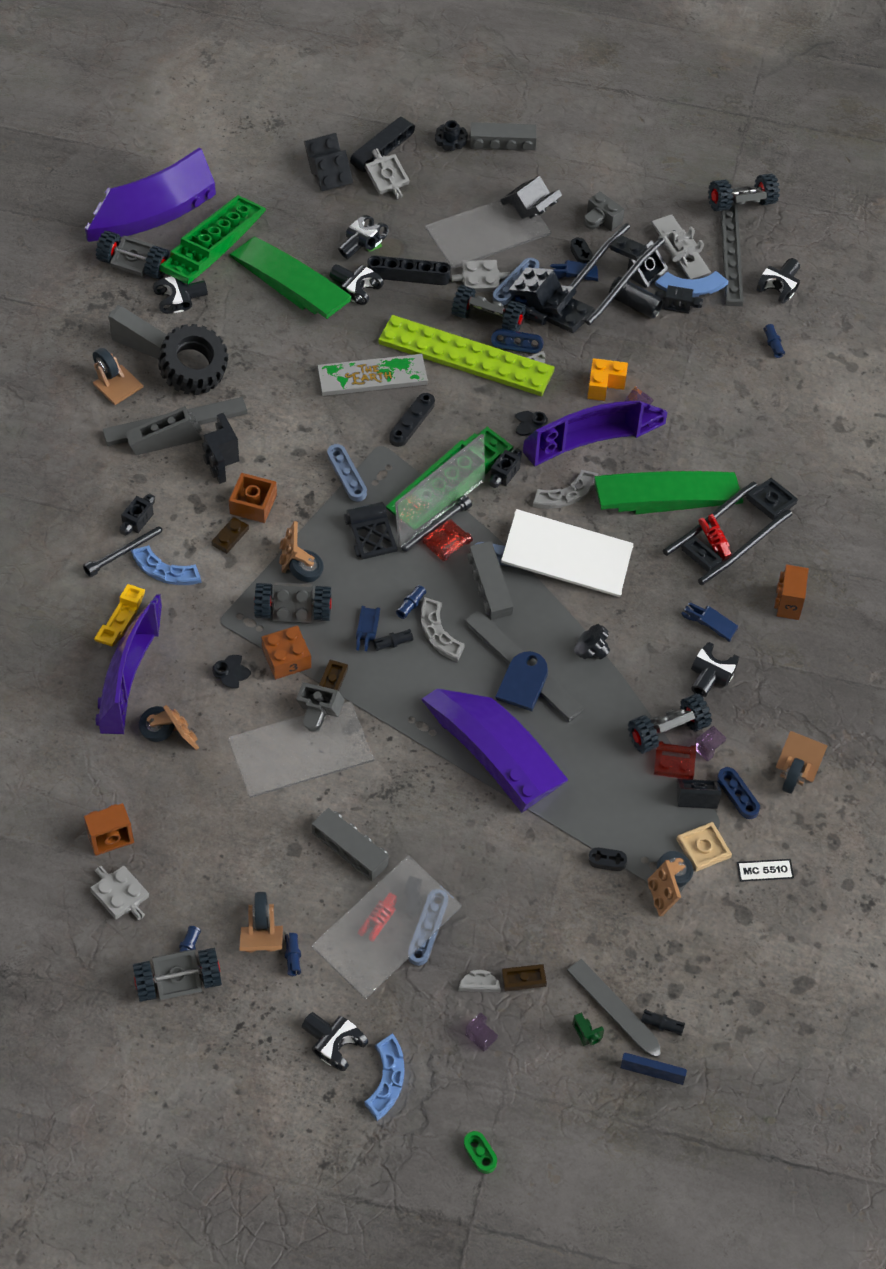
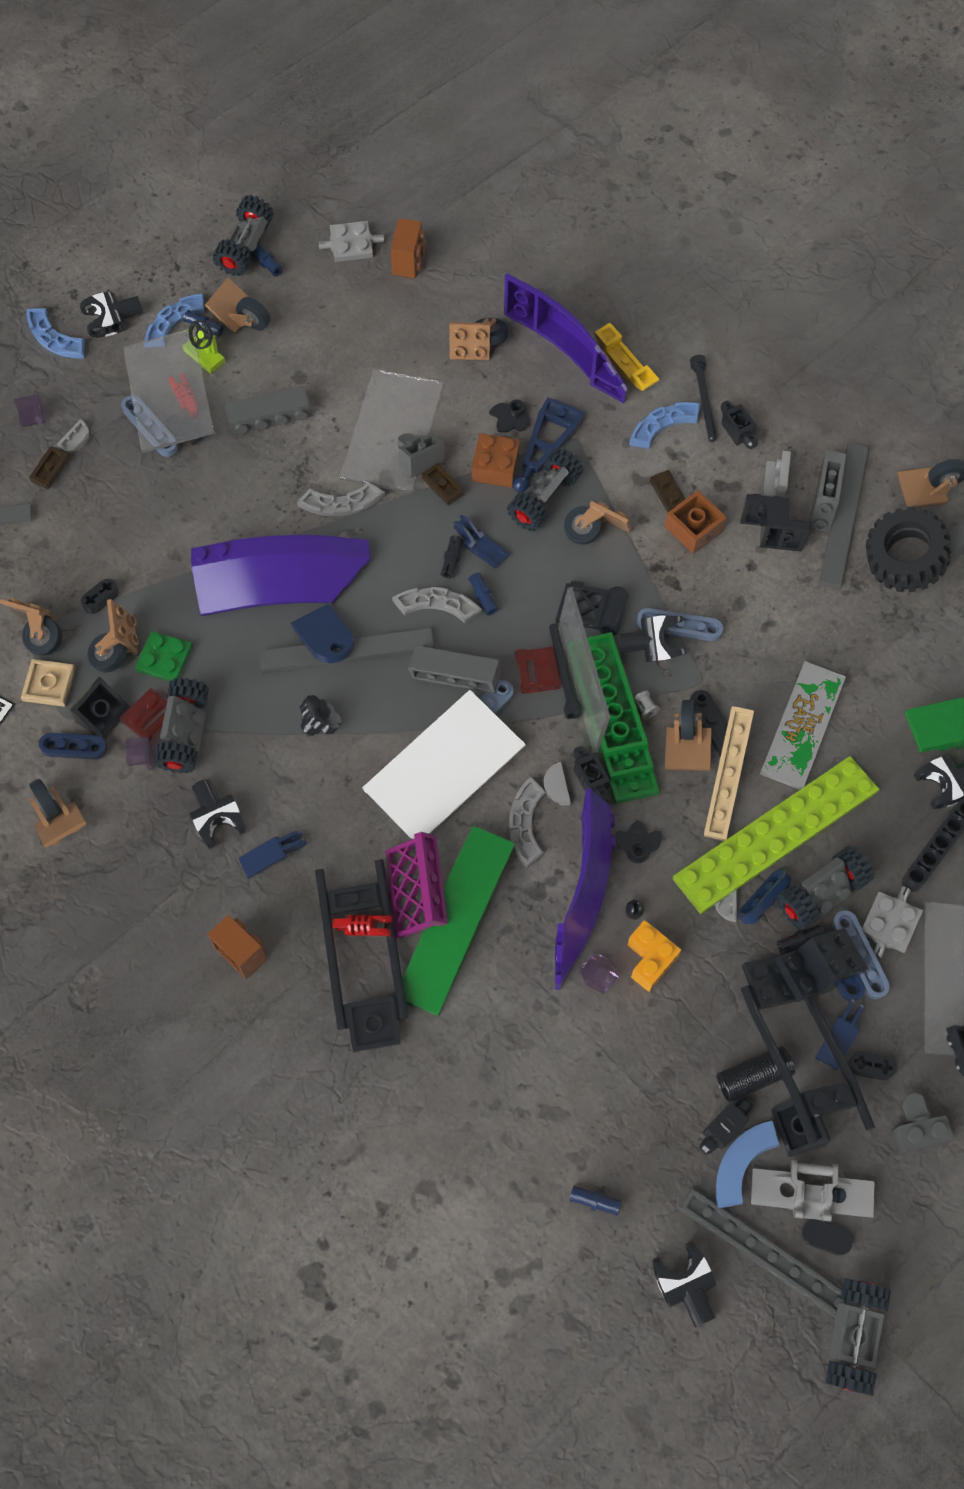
camera: 125 degrees right, 10 degrees up
(172, 467) = (777, 476): none -> light grey bracket
(208, 638) = (558, 414): none -> dark blue plate
(302, 992) = (173, 314): none -> medium blue tile
(320, 925) = (206, 346): none -> piece
(373, 475) = (652, 639): none -> black connector
(398, 741) = (340, 506): none -> light grey tile
(426, 462) = (646, 705): none -> light grey bush
(439, 425) = (688, 746): none -> medium nougat plate
(446, 390) = (728, 773): none -> tan plate
(526, 488) = (555, 785): none -> light grey tile
(581, 404) = (629, 910): none -> black hinge
(622, 781) = (163, 656): none -> green plate
(650, 813) = (110, 649): none -> medium nougat plate
(656, 508) = (429, 881): none -> magenta fence
(700, 232) = (827, 1237): none -> black tile

